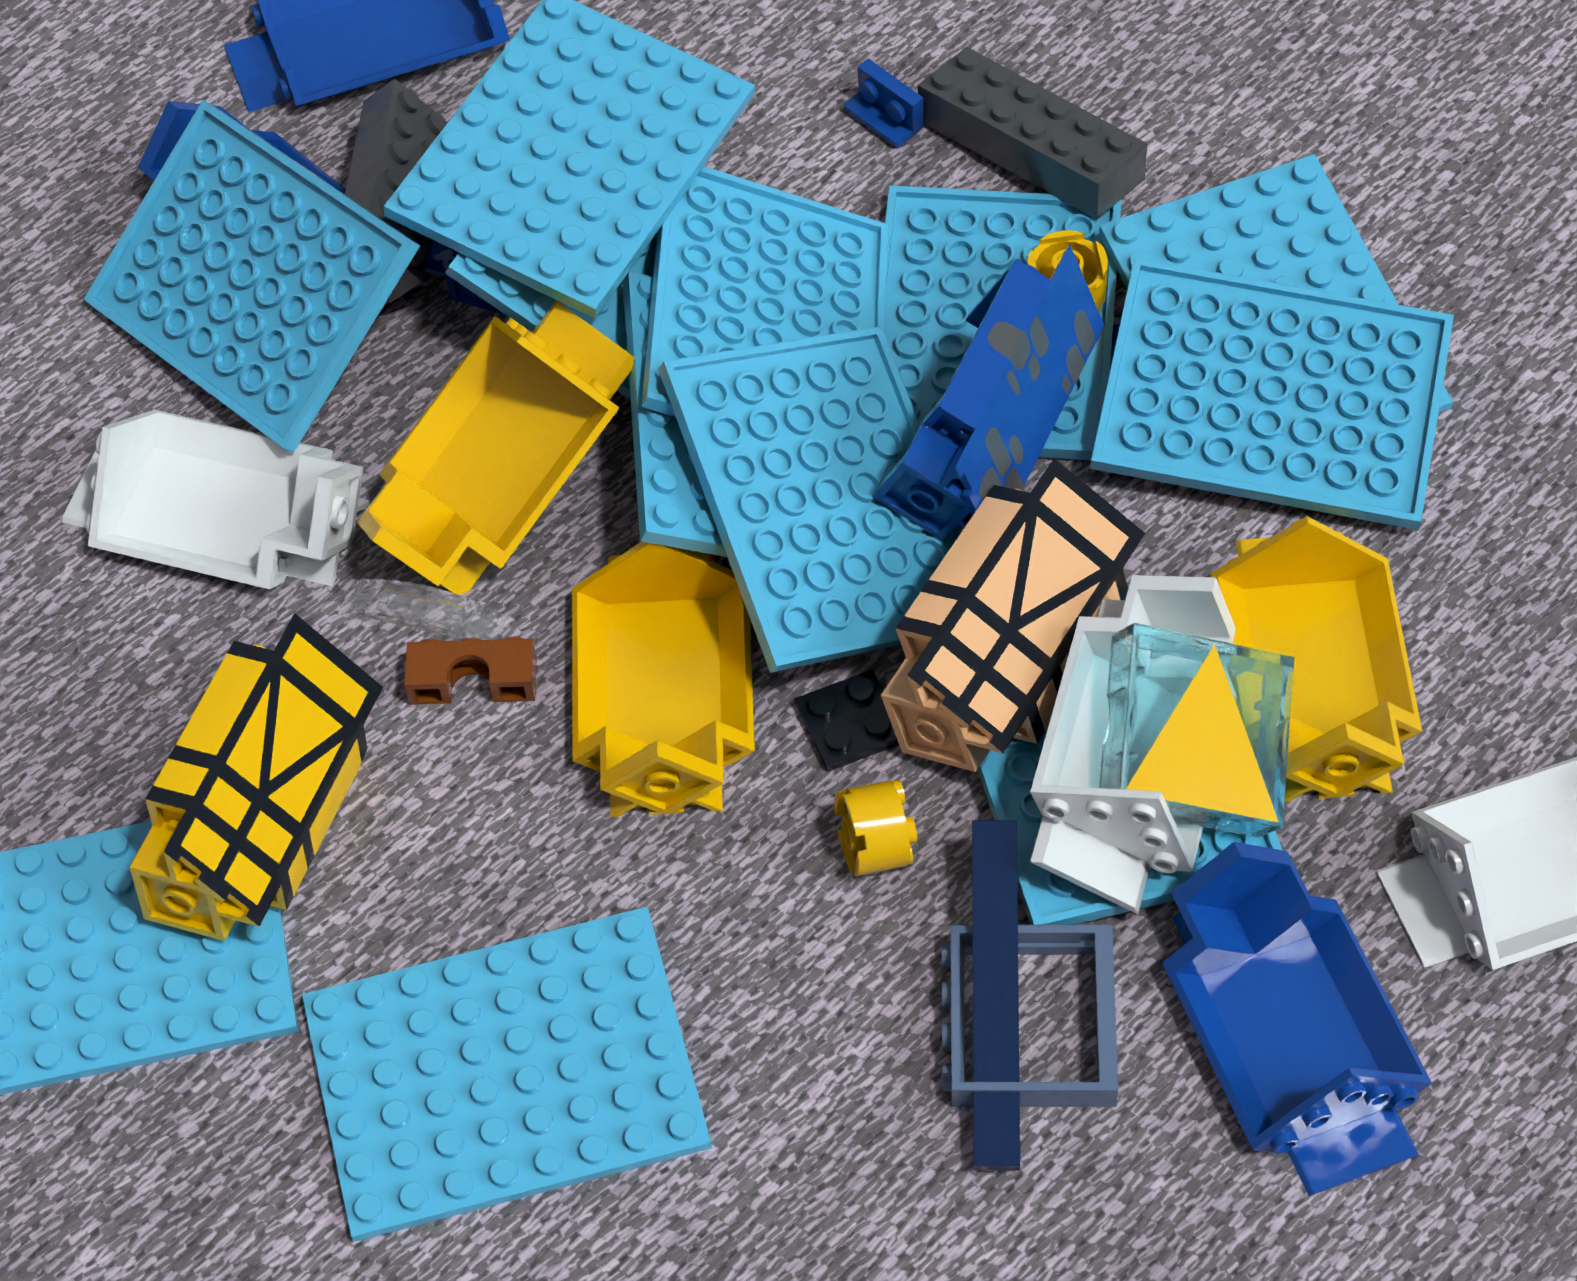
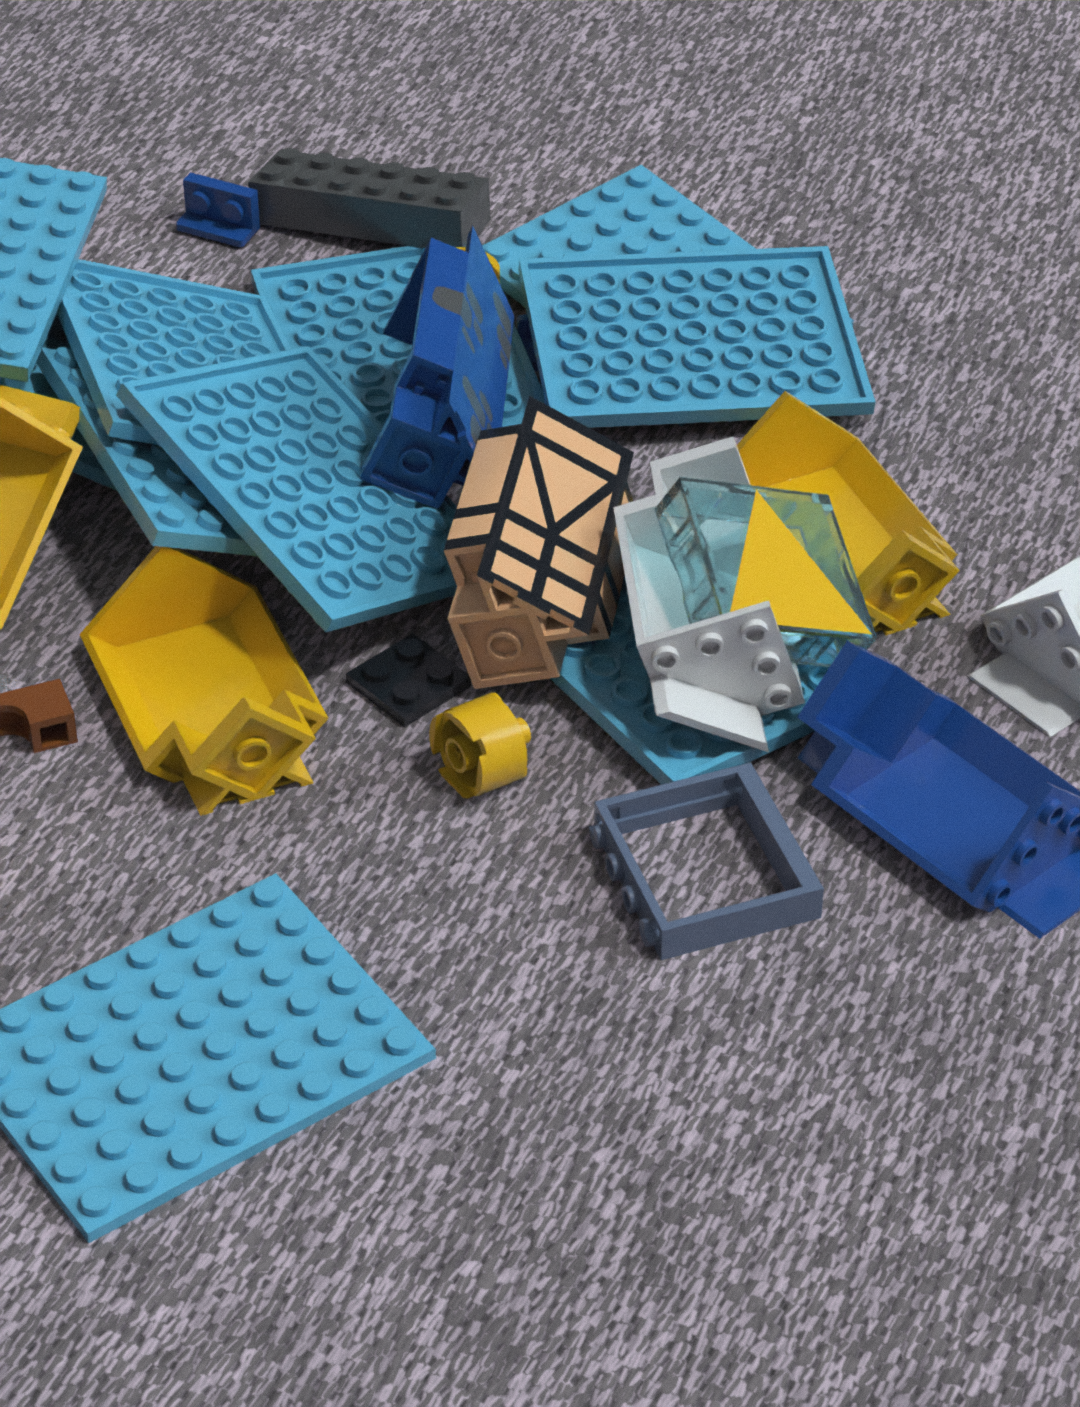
camera: 25 degrees left, 15 degrees down
(995, 993) = (667, 845): dark blue tile -> none

